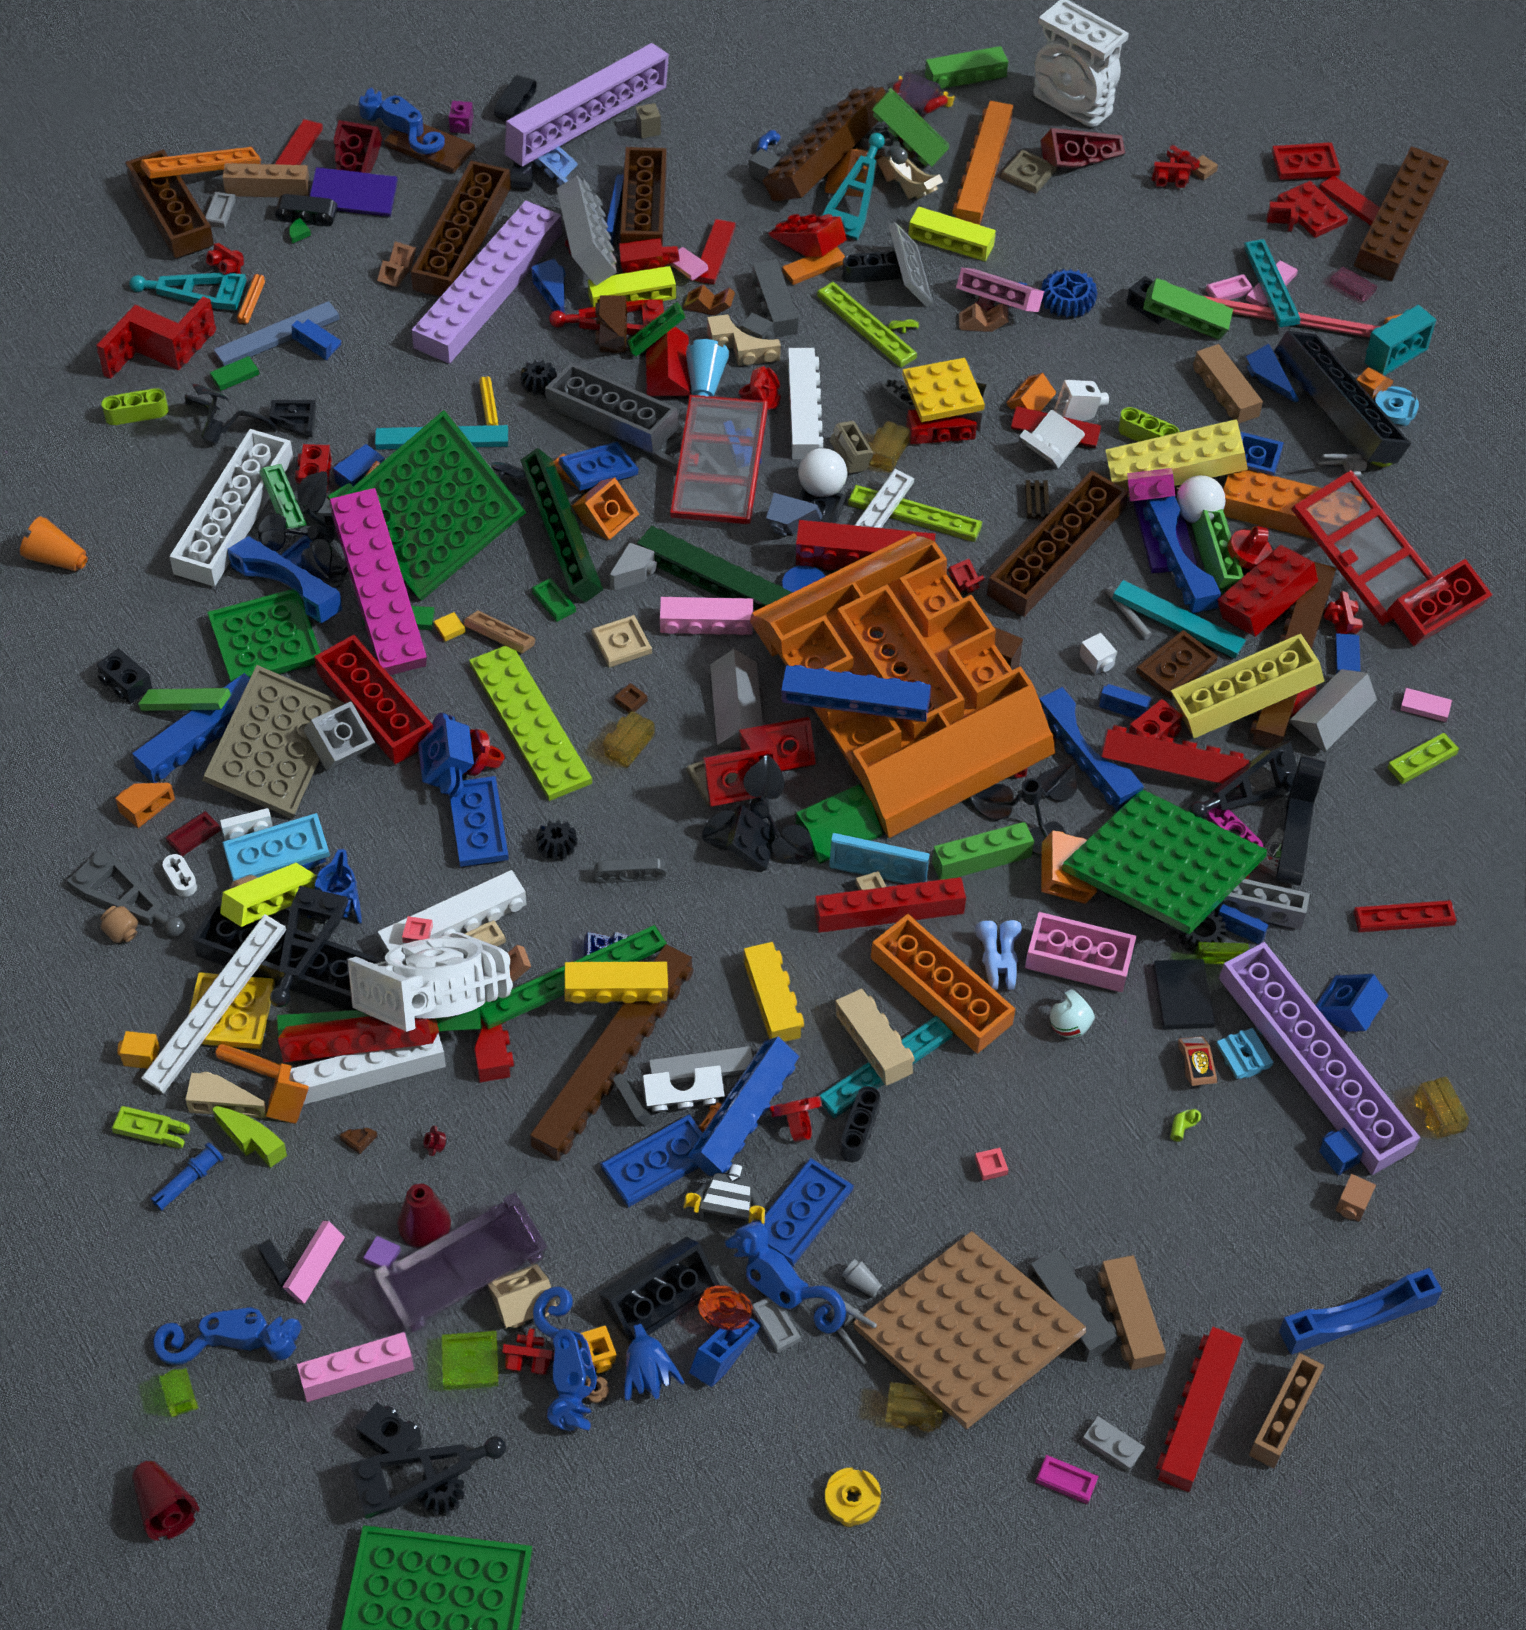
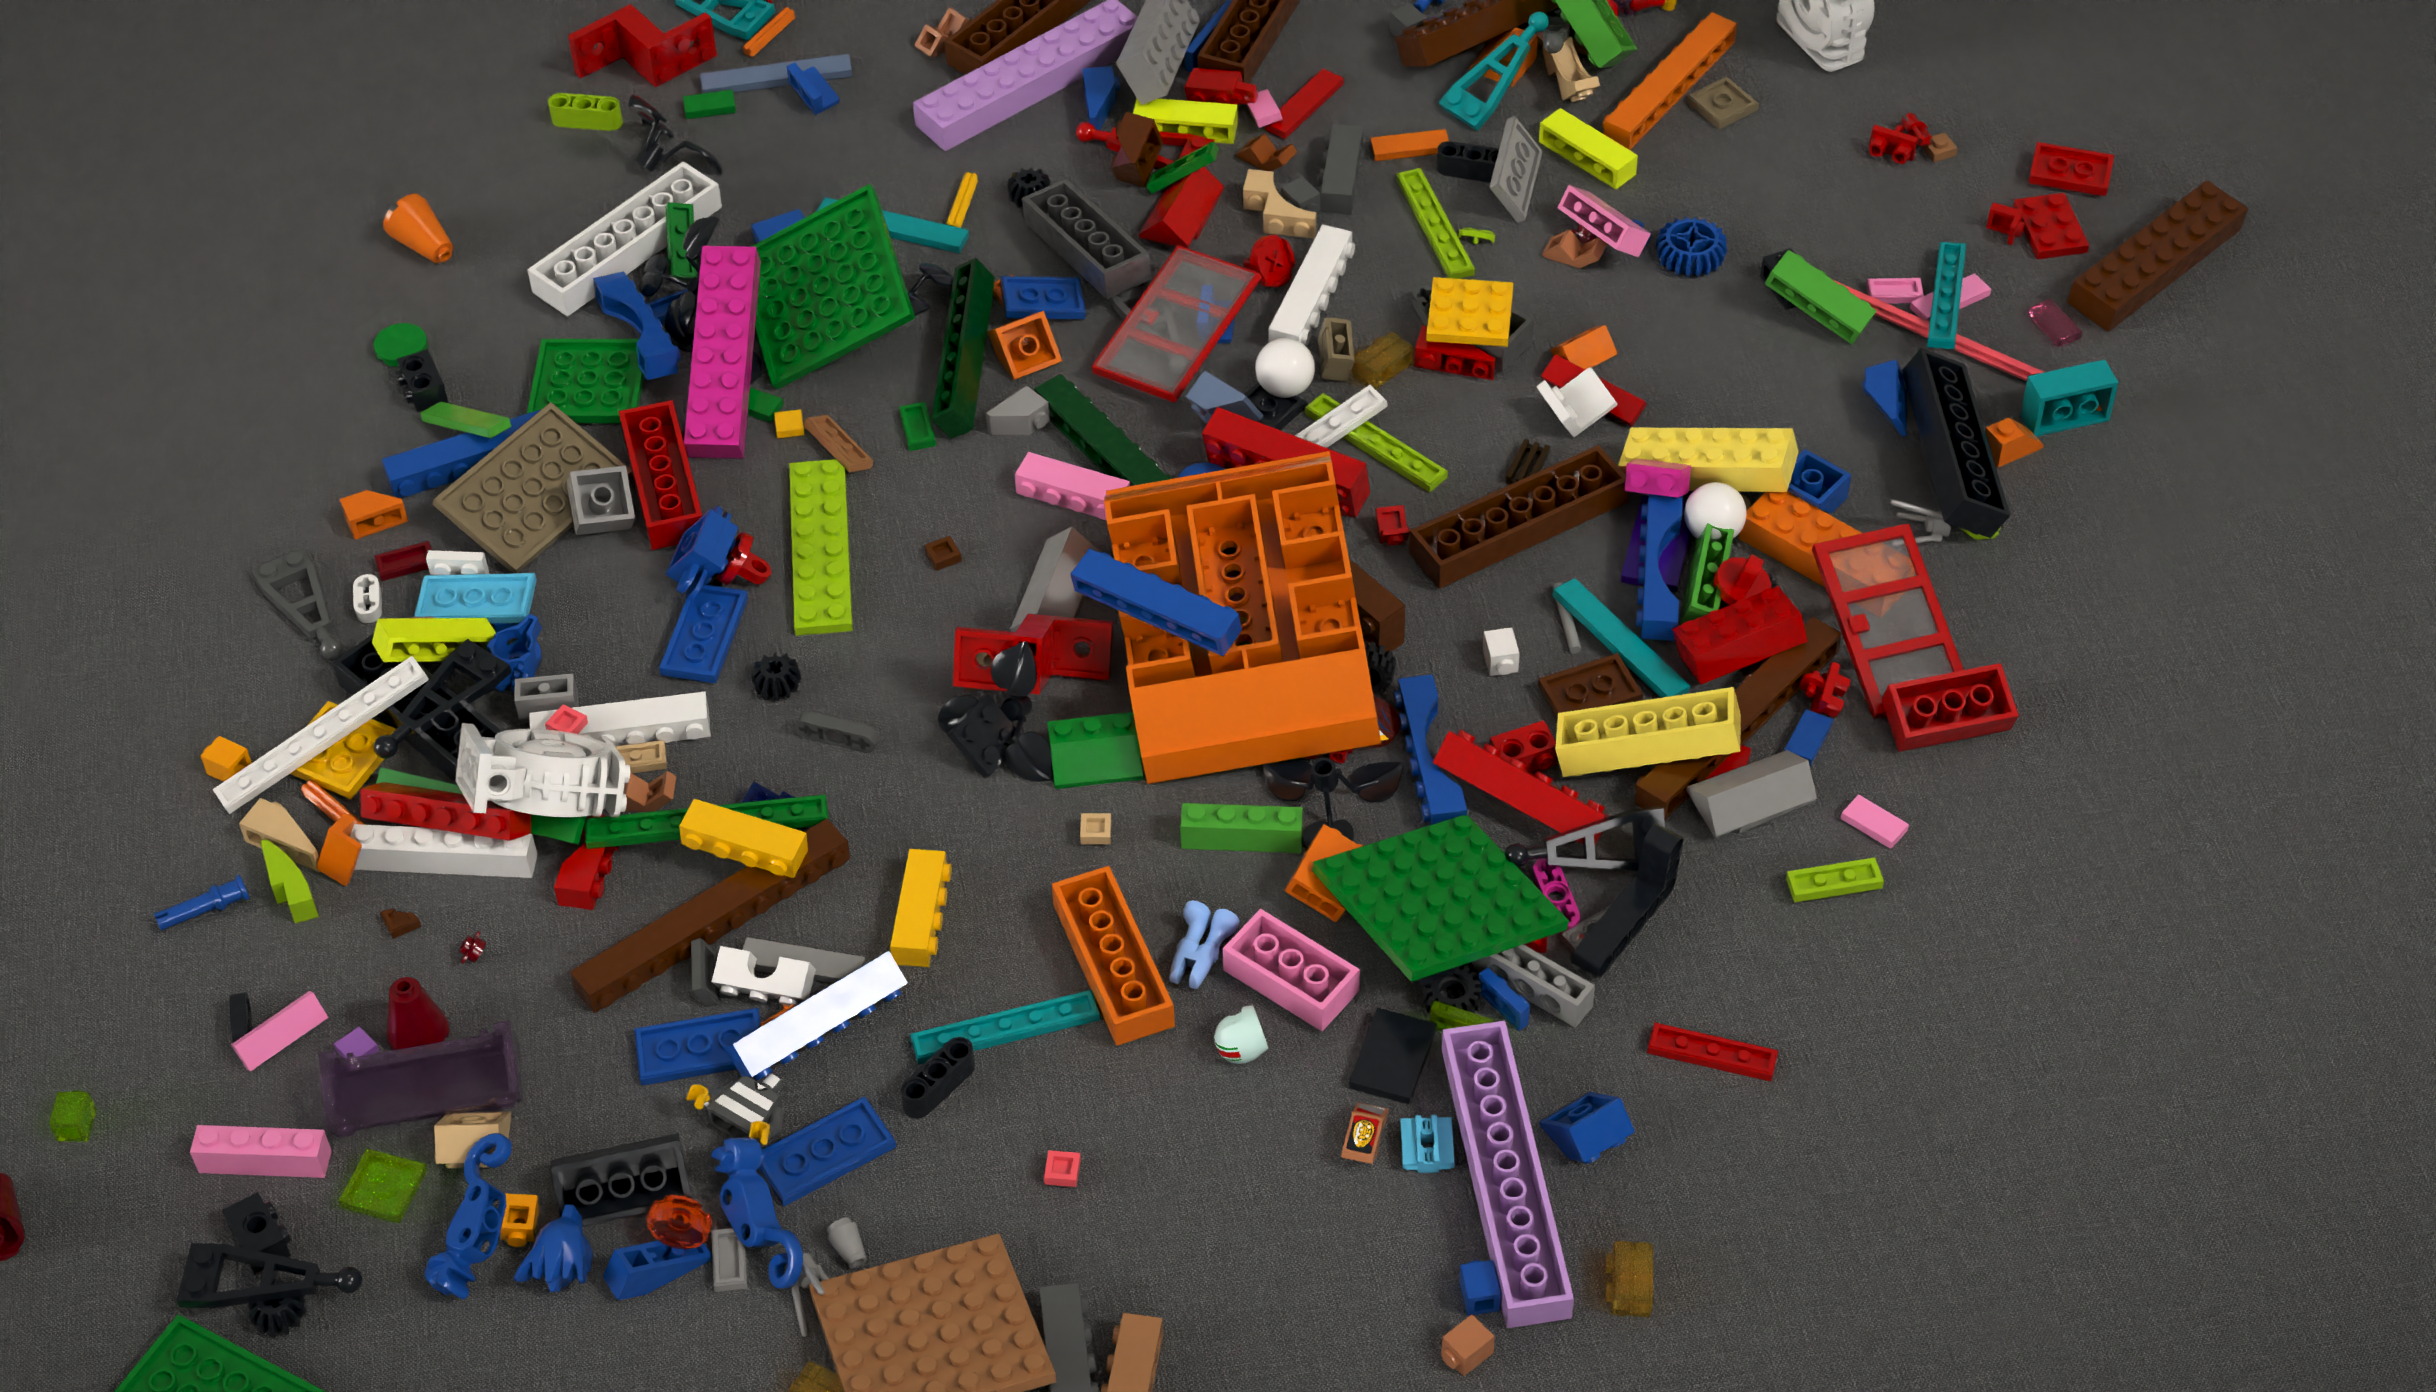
camera: 25 degrees right, 5 degrees down
(85, 649) = (399, 341): none -> green tile
(119, 924) = (276, 627): medium nougat head -> none
(149, 1127) = (194, 841): lime hinge -> none
(231, 1331) = (160, 1072): blue animal -> none
(294, 415) = (746, 162): black wing -> none
(313, 460) = (736, 220): red brick -> none
(381, 913) = (544, 694): none -> light grey brick
(540, 1357) = (432, 1196): red hips -> none
(602, 1392) = (500, 1268): medium nougat plate -> none
(621, 641) = (967, 489): tan tile -> none
(628, 739) = (914, 593): clear yellow brick -> none
(706, 365) = (1218, 221): medium azure cone -> none
(797, 1116) = (870, 1041): red tile -> none
(810, 234) = (1420, 109): red slope -> none
(867, 856) = (1105, 794): medium azure tile -> none
(874, 1036) = (1003, 988): tan brick -> none
(889, 904) = (1089, 849): red brick -> none
(1079, 148) = (1793, 89): dark red wedge -> none
(1080, 400) = (1635, 366): white torso -> none
(1124, 701) = (1502, 710): blue panel -> none
(1142, 426) = (1693, 411): lime beam -> none
(1184, 1121) = (1311, 1195): lime arm -> none
(1227, 383) = (1828, 395): medium nougat brick -> none
(1350, 199) = (2102, 221): red tile -> none
(1407, 405) = (2024, 484): medium azure plate -> none

